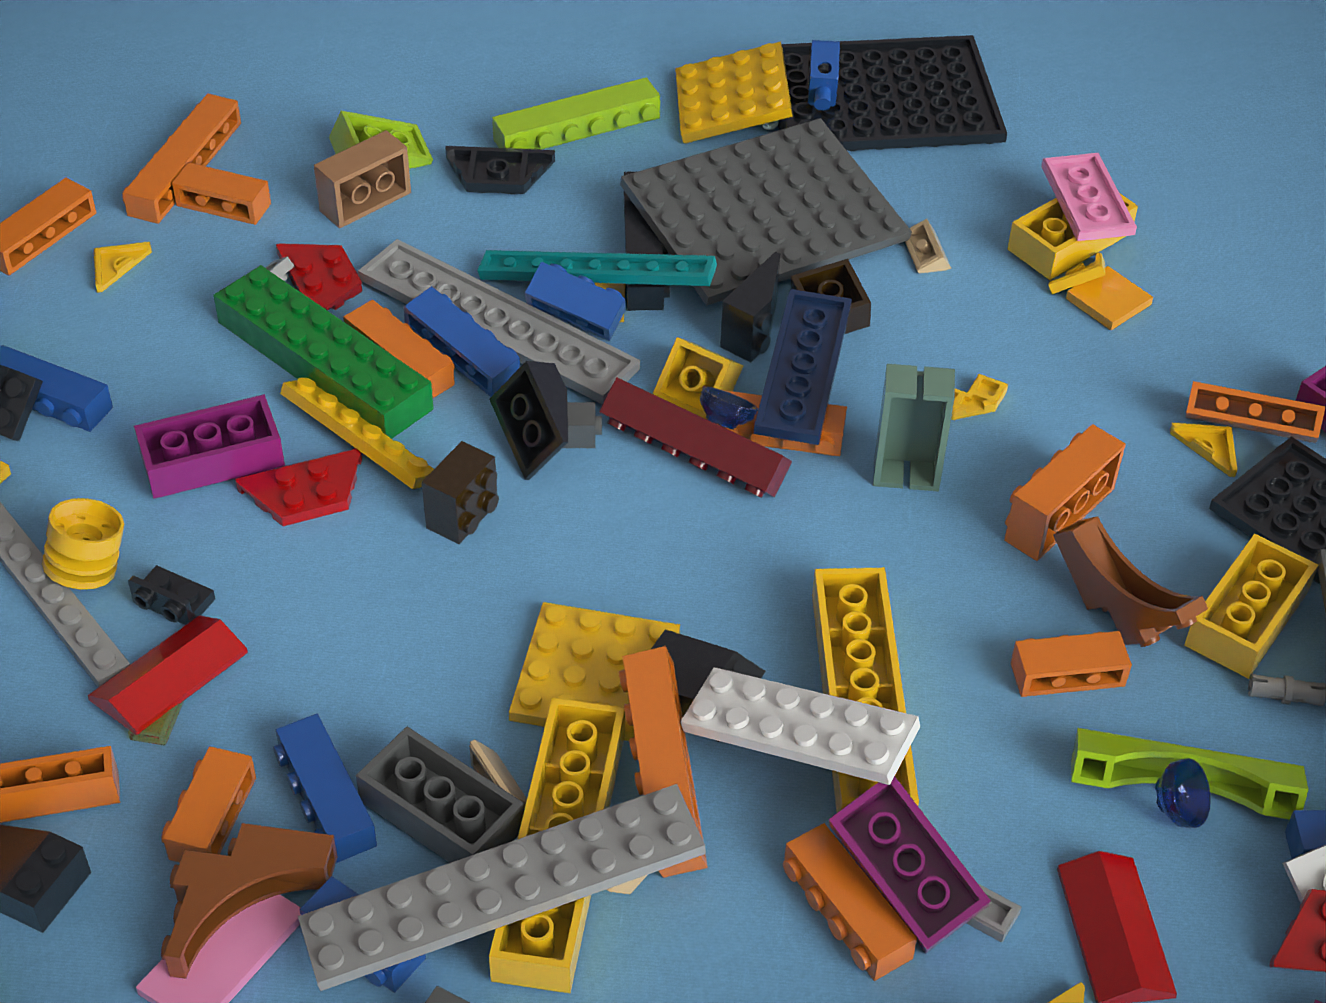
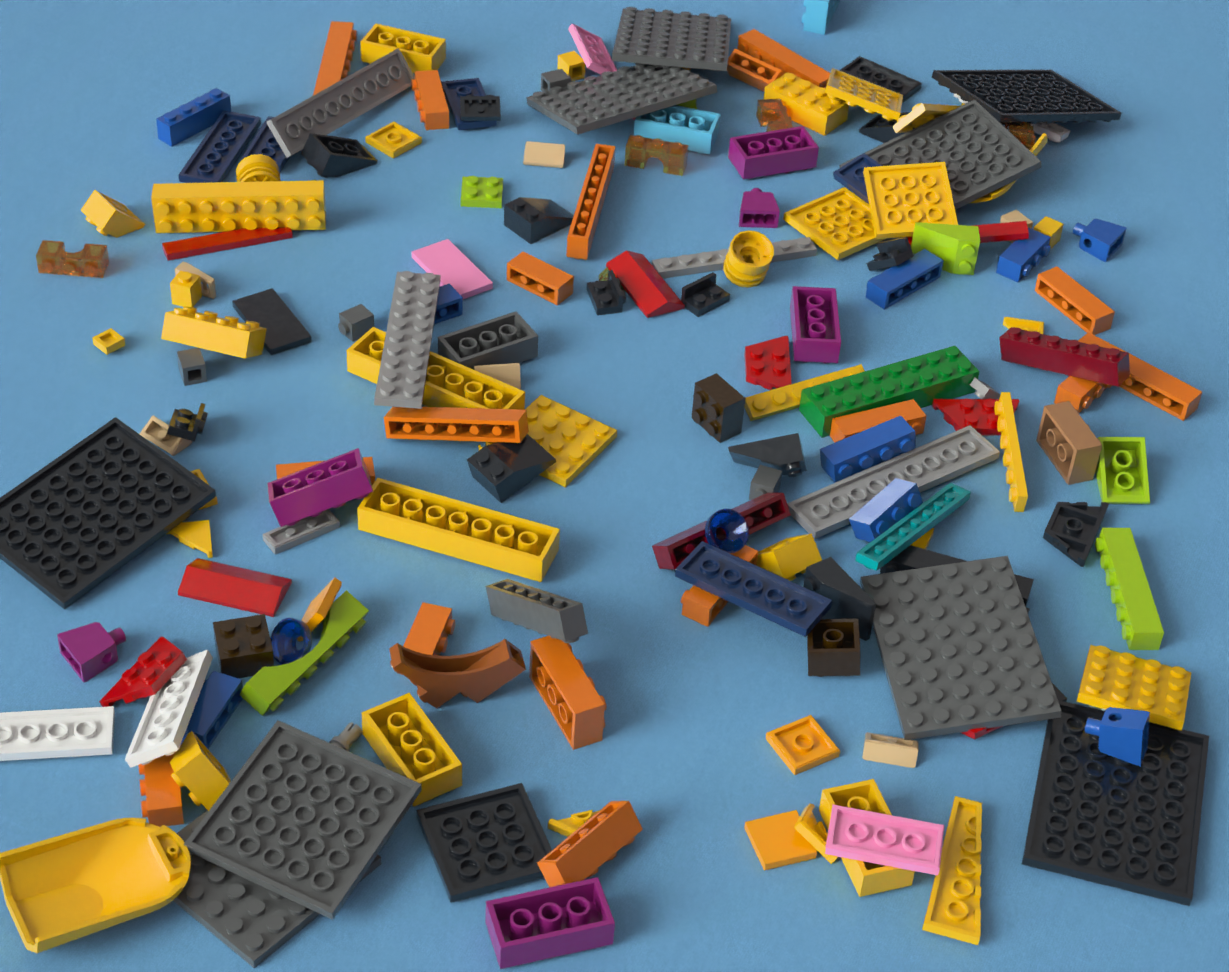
camera: 110 degrees right, 5 degrees down
(200, 196) = (1065, 356): none -> dark red brick
(214, 712) = (606, 295): none -> black bracket
(218, 886) = (484, 266): dark orange arch -> none
(324, 786) = (540, 315): blue brick -> none
(397, 223) = (1012, 454): none -> yellow plate
(801, 725) = (426, 455): white plate -> none
(913, 426) = (650, 606): sand green piece -> none
(970, 310) = (802, 744): none -> light orange tile
(980, 399) = (701, 694): yellow tile -> none
(997, 523) = (537, 610): none -> dark grey brick
(1029, 177) = (956, 889): none -> yellow wing
(1117, 783) = (320, 605): none -> light orange tile
(1227, 849) = (243, 645): none -> dark brown brick

